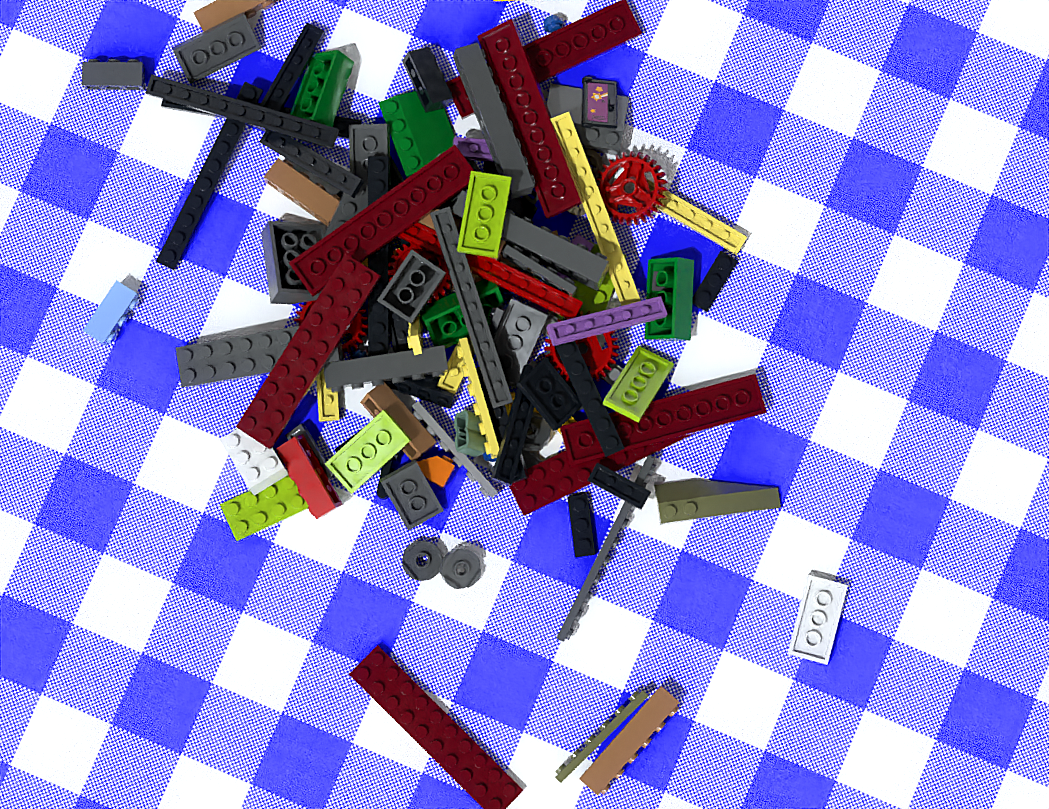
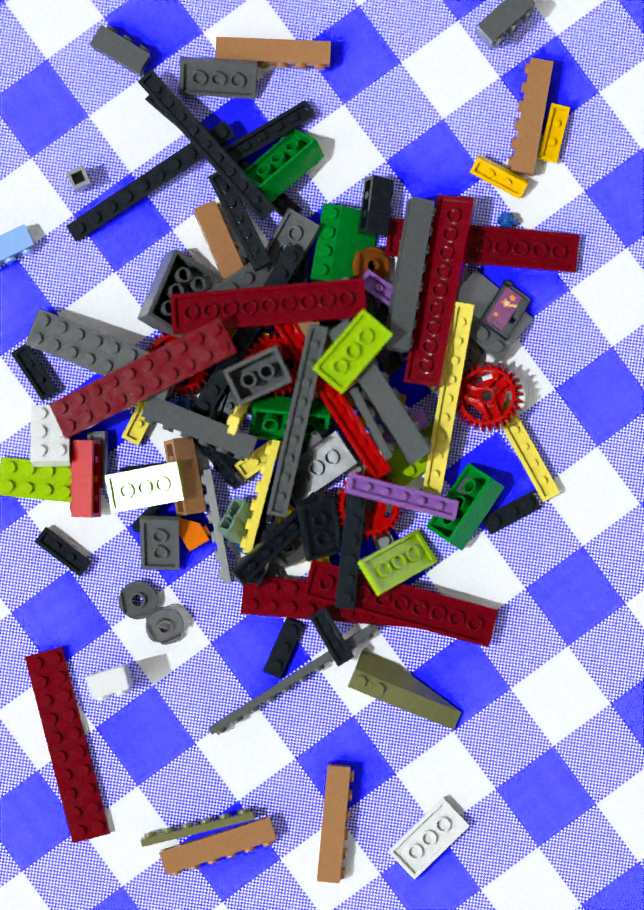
camera: 30 degrees right, 5 degrees up
(143, 211) = (79, 179): none -> light grey brick
(204, 409) = (34, 372): none -> black plate
(327, 557) = (63, 551): none -> black plate
(441, 647) = (109, 681): none -> white brick
(457, 125) = (363, 258): none -> dark orange plate
(723, 657) = (333, 823): none -> medium nougat brick

